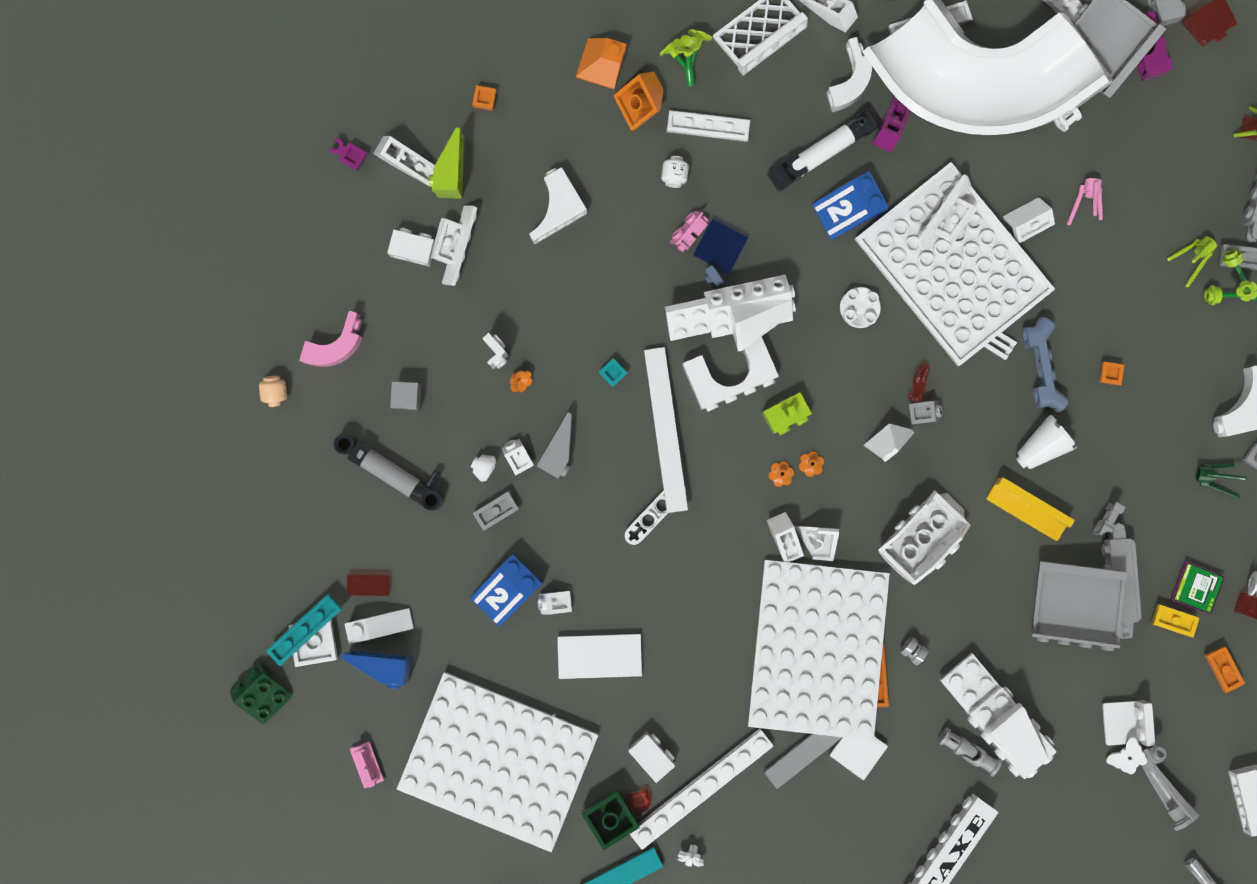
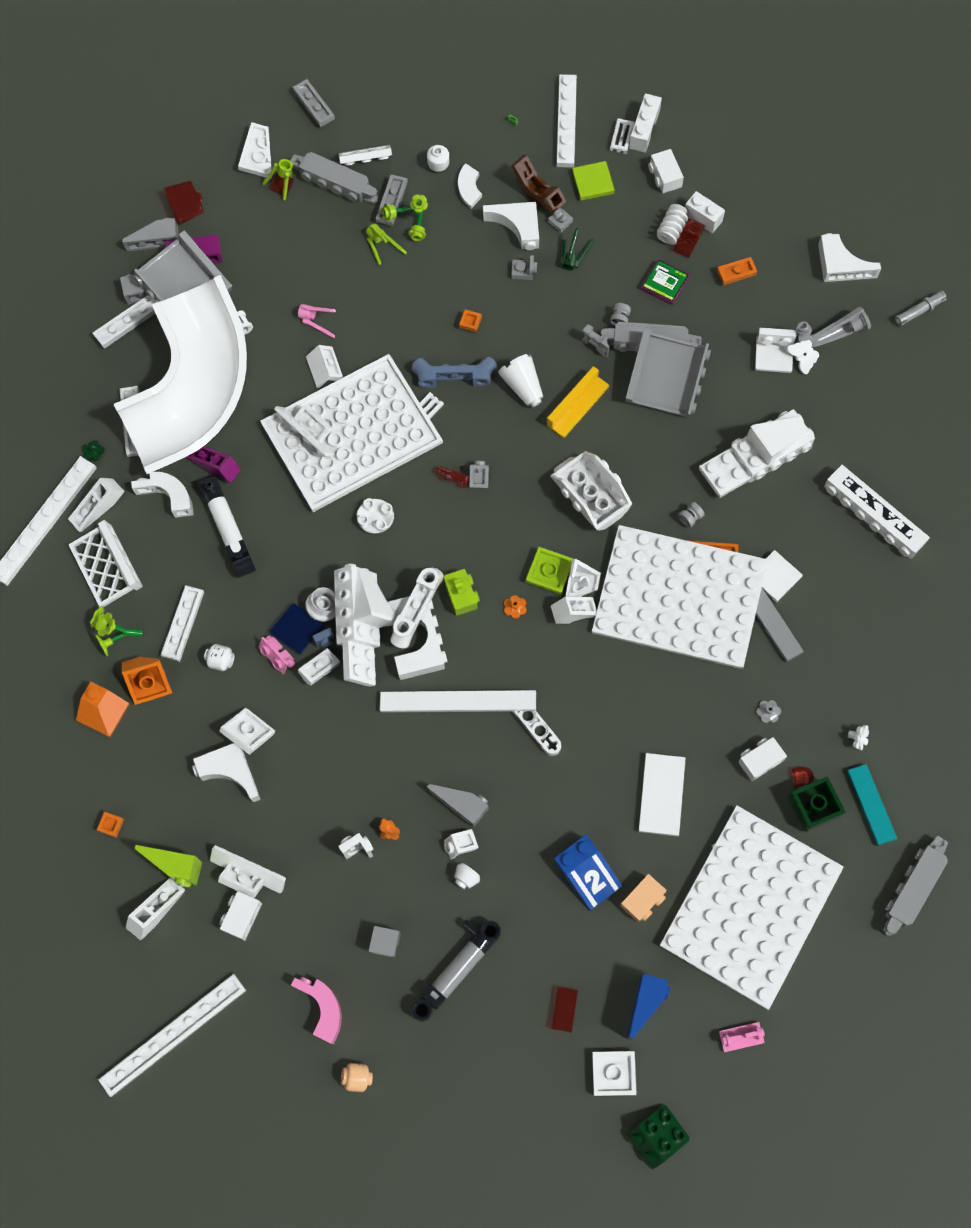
camera: 75 degrees left, 15 degrees down
(289, 204) = (172, 1035): none -> white tile
(304, 629) = (600, 1078): teal tile -> none
(350, 155) = (137, 964): magenta plate -> none
(379, 626) = (606, 1003): white slope -> none
(487, 650) = (643, 899): none -> light nougat brick
(495, 511) = (510, 872): light grey plate -> none
(554, 602) = (606, 828): white bracket -> none
(600, 216) = (247, 731): none -> white tile
(613, 372) = (396, 742): teal plate -> none
(680, 278) = (318, 667): none -> white plate
(701, 788) = (796, 718): white plate -> none
(703, 753) = (765, 714): none -> light grey plant
(748, 267) = (321, 604): none -> white piece
(760, 369) = (415, 607): none -> white plate
(805, 465) = (510, 583): orange plant -> none
(826, 505) = (549, 570): none -> lime plate
(850, 206) = (282, 510): blue slope -> none
(889, 441) = (500, 507): white slope -> none
(968, 751) = (786, 482): light grey piece -> none
(1146, 542) = (620, 313): none -> light grey wheel
(1175, 620) = (690, 302): yellow plate -> none
(1187, 424) = (524, 269): none -> light grey bracket

